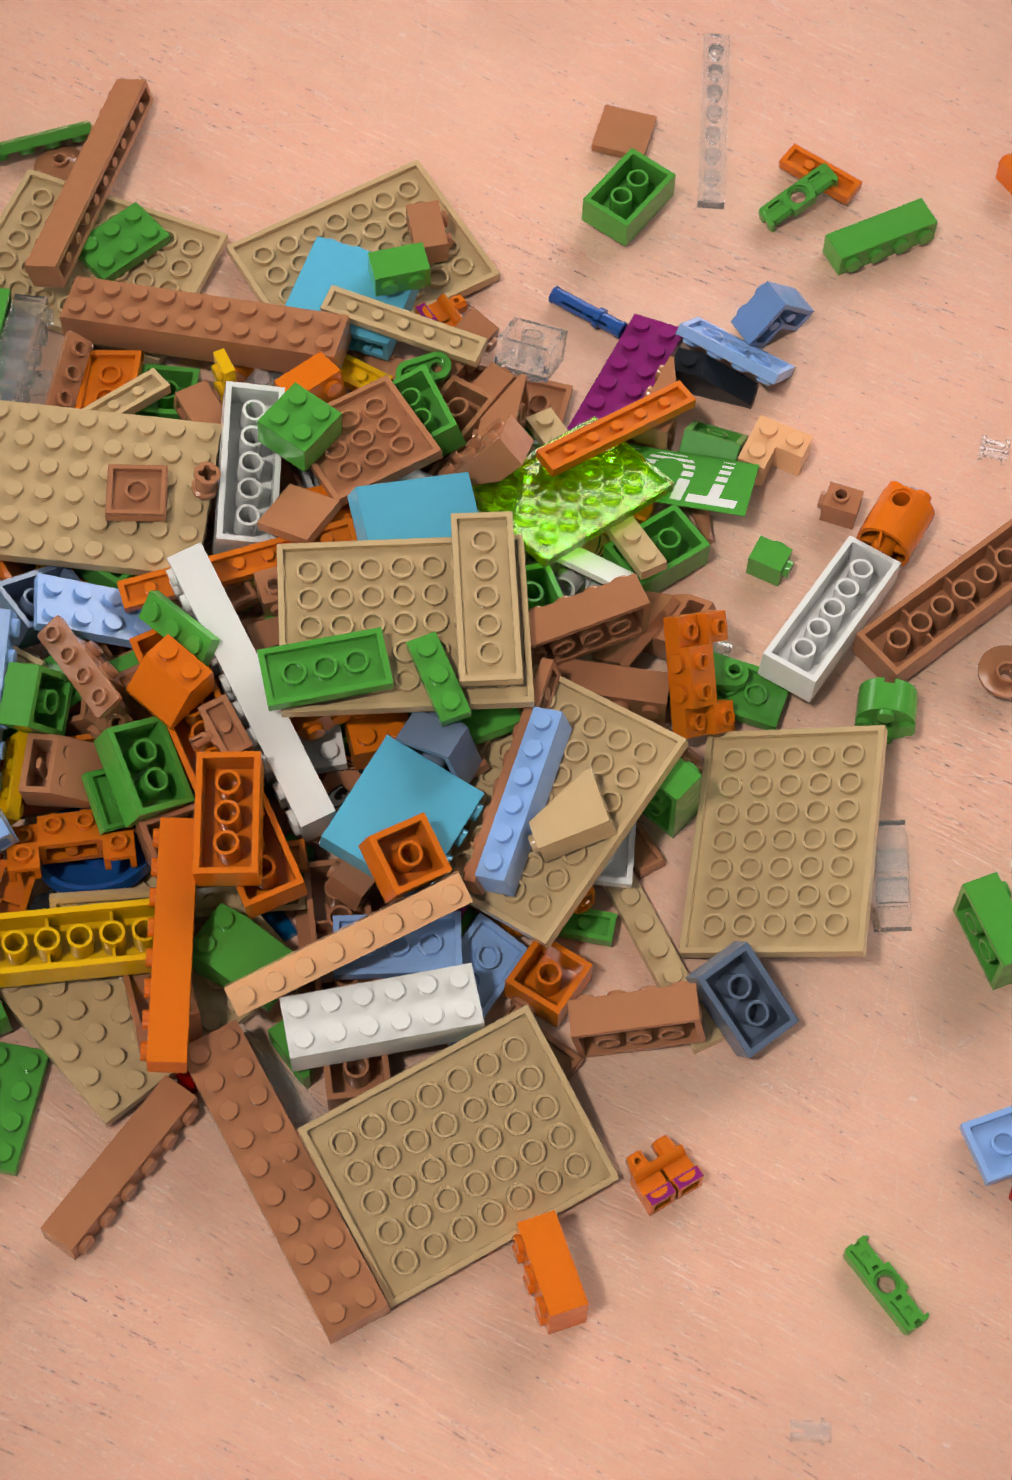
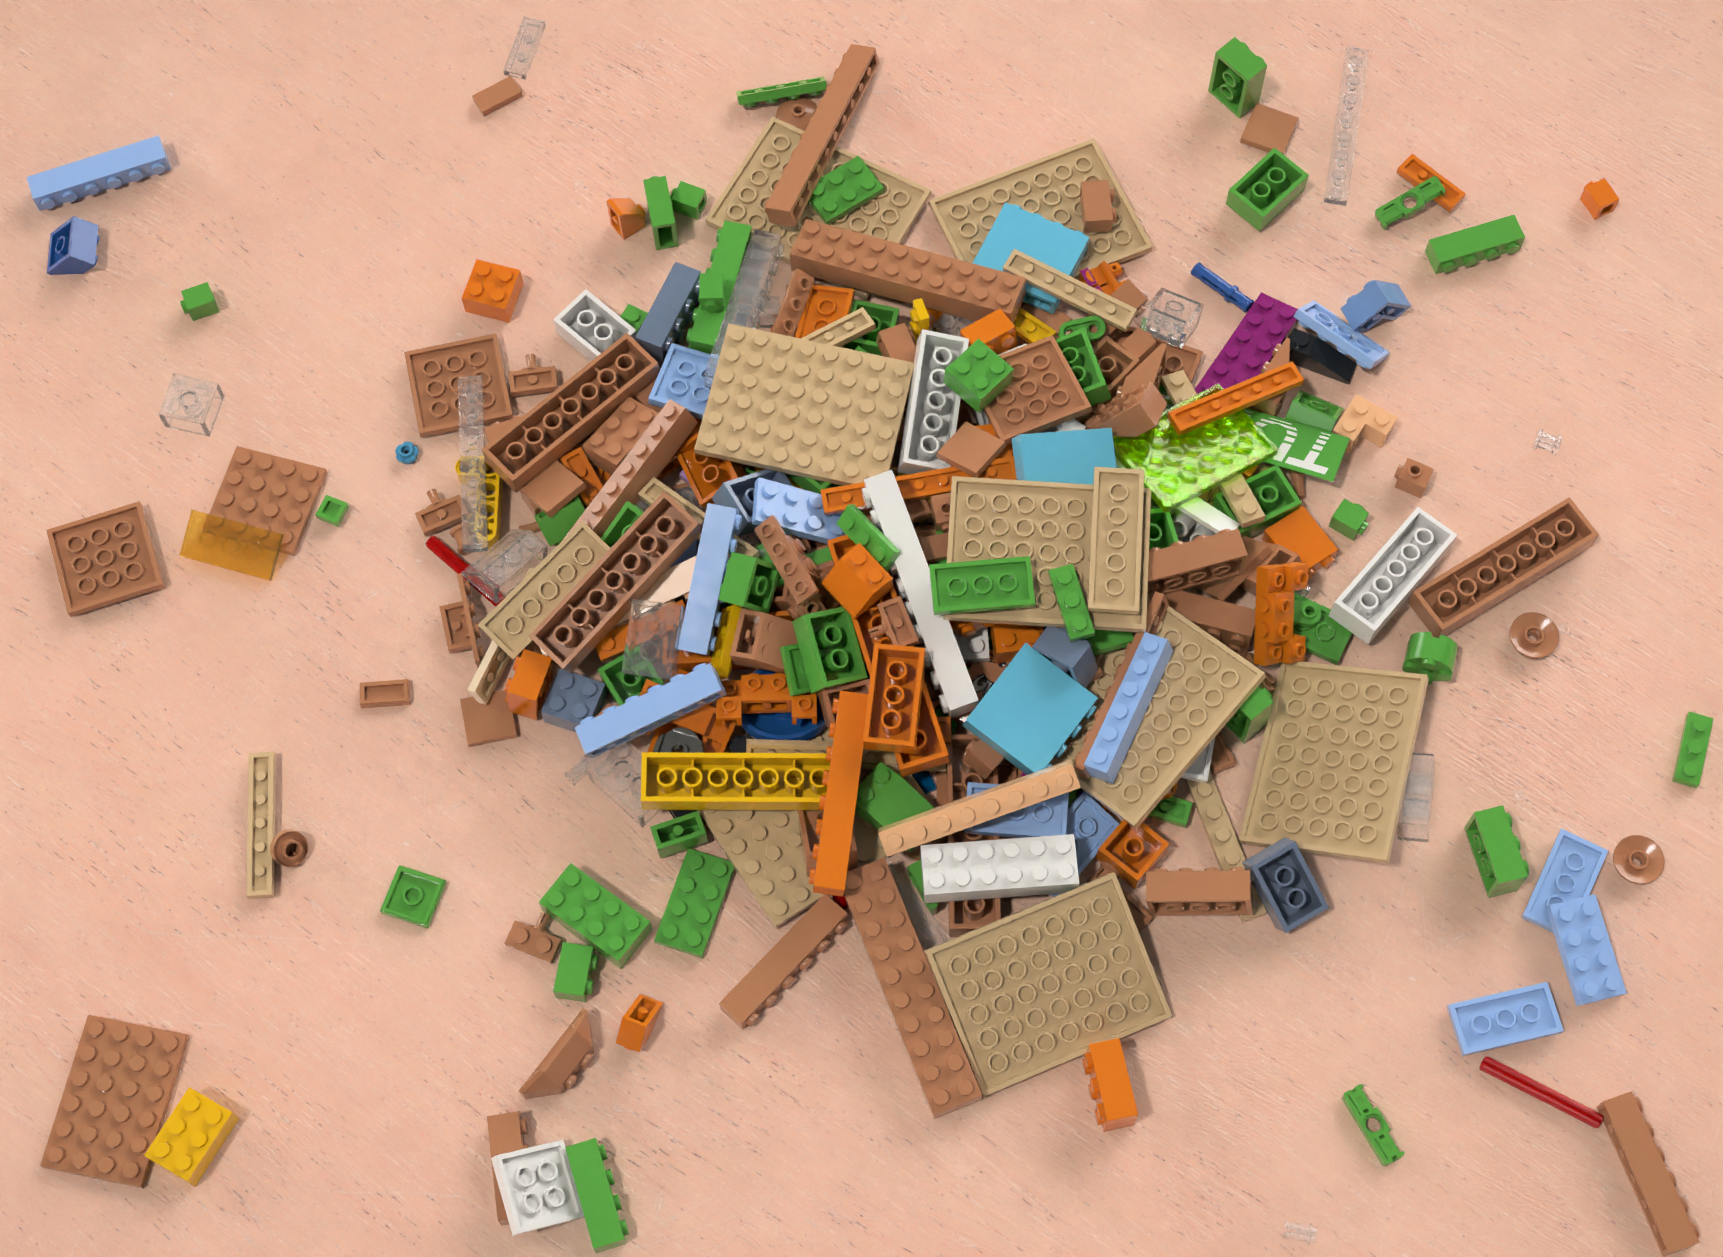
camera: 10 degrees right, 5 degrees up
(136, 493) = (842, 416): nougat tile -> none
(205, 480) = (904, 408): nougat bush -> none
(399, 269) = (1070, 240): bright green brick -> none
(405, 857) = (1030, 746): orange brick -> none
(572, 819) = (1166, 728): tan slope -> none
(579, 74) = (1237, 77): none -> bright green brick
(665, 1177) = (1207, 1020): orange hips -> none
(718, 582) = (1304, 537): none -> orange brick
(897, 521) = (1458, 499): orange cylinder -> none

